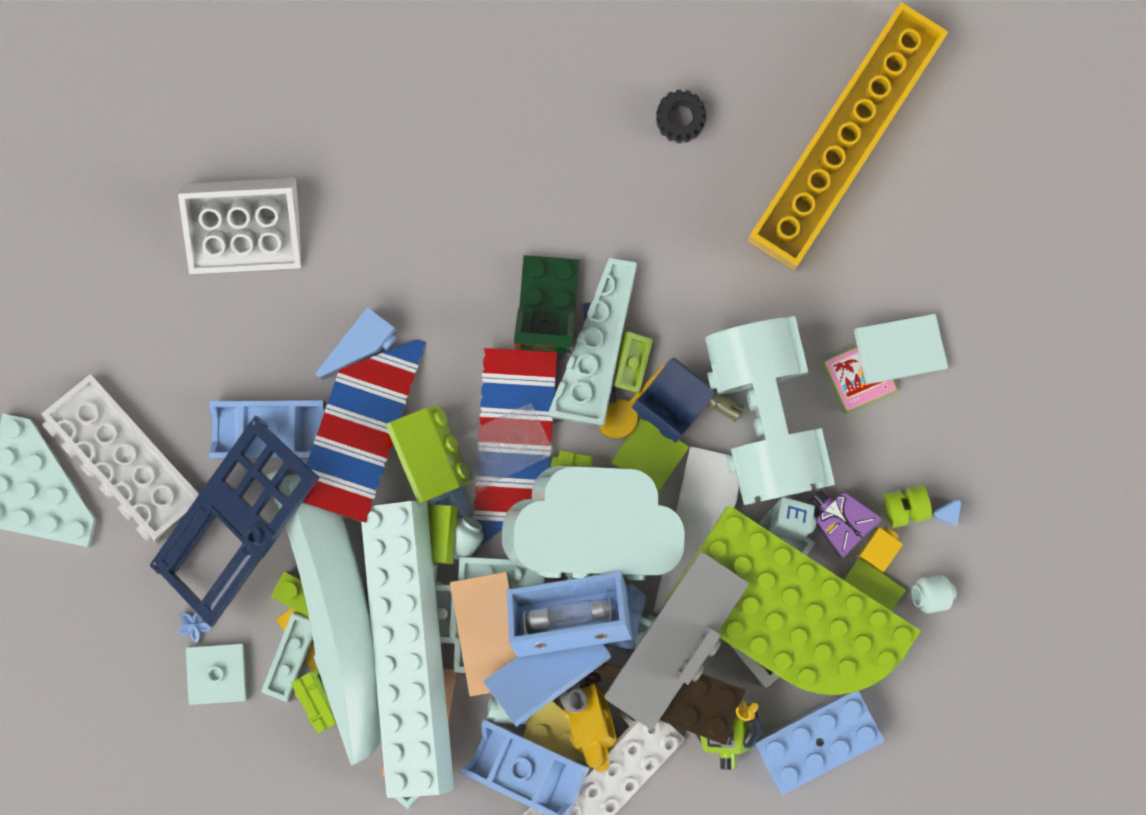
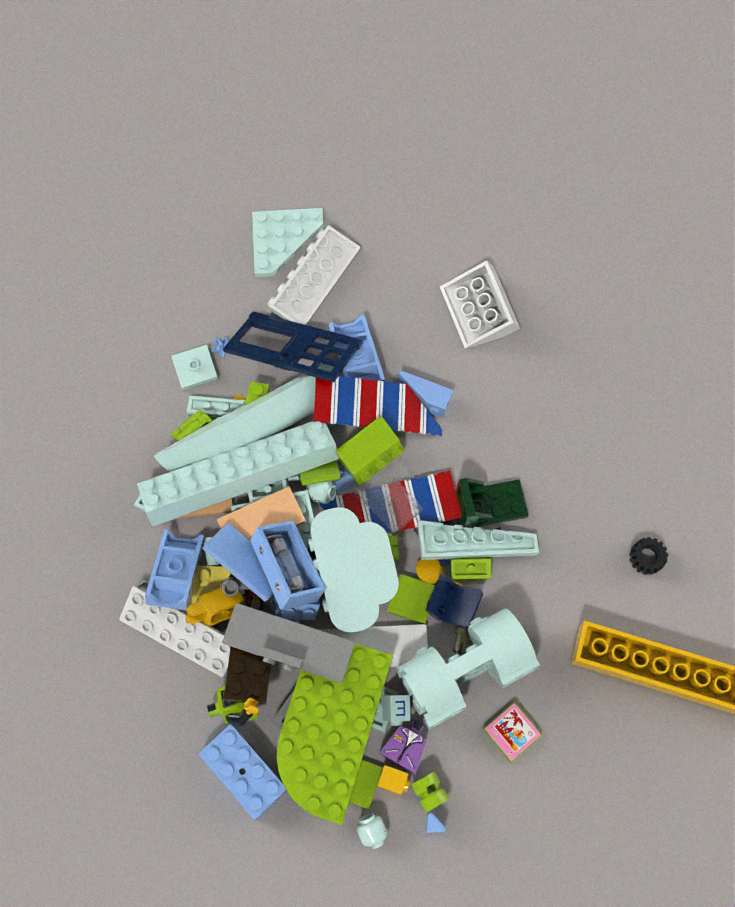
camera: 70 degrees right, 15 degrees down
(900, 349) = (541, 756): light aqua tile -> none

